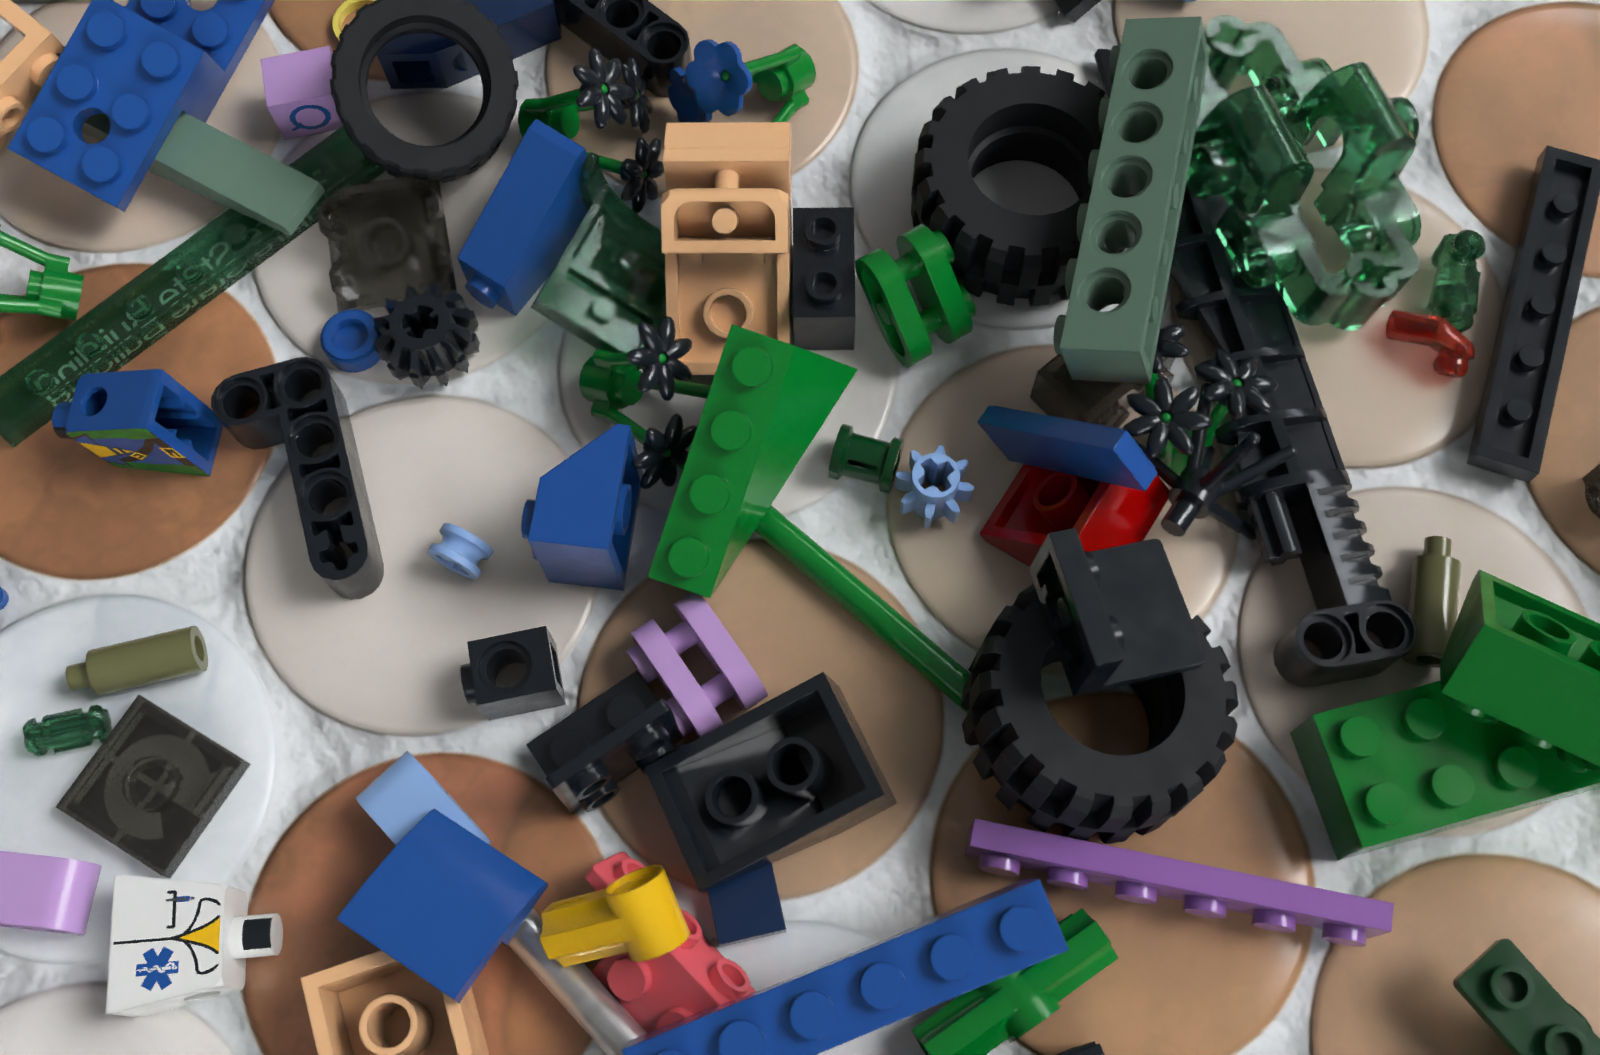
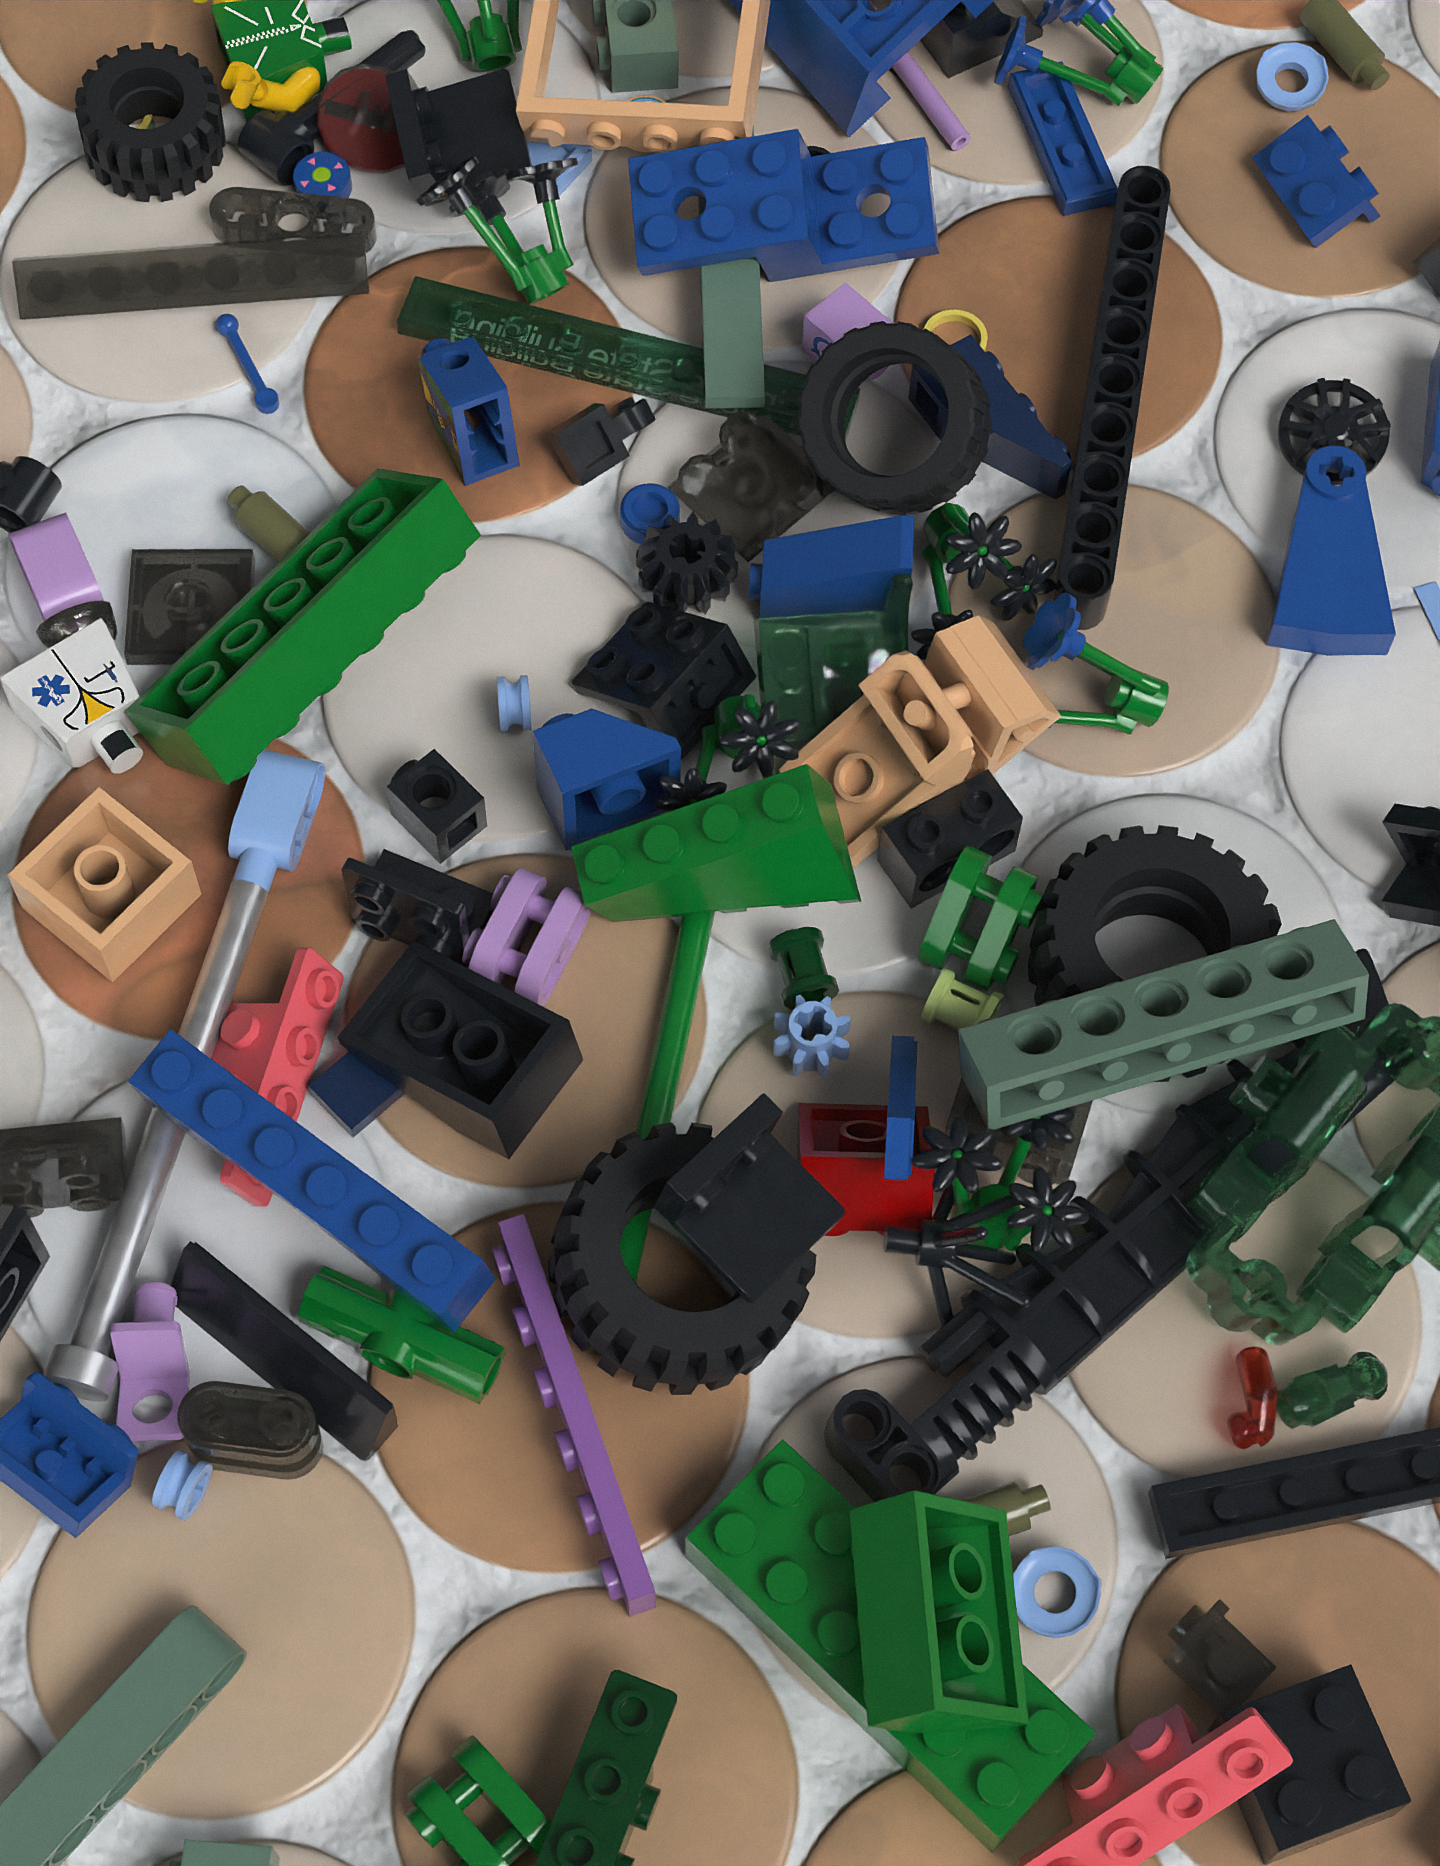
camera: 55 degrees right, 5 degrees down
(67, 730) = (195, 519): clear green piece -> none
(96, 910) = (74, 619): none -> clear smoke piece
(247, 334) = (594, 437): none -> black plate
(261, 692) = (304, 625): none -> green brick
(316, 480) = (463, 616): black beam -> none
(443, 903) = (213, 851): blue slope -> none
(514, 409) = (668, 670): none -> black bracket
(628, 916) = (279, 986): yellow piece -> none
(977, 357) = (959, 1003): none -> yellowish green bush
(1536, 559) = (1085, 1583): none -> light blue piece

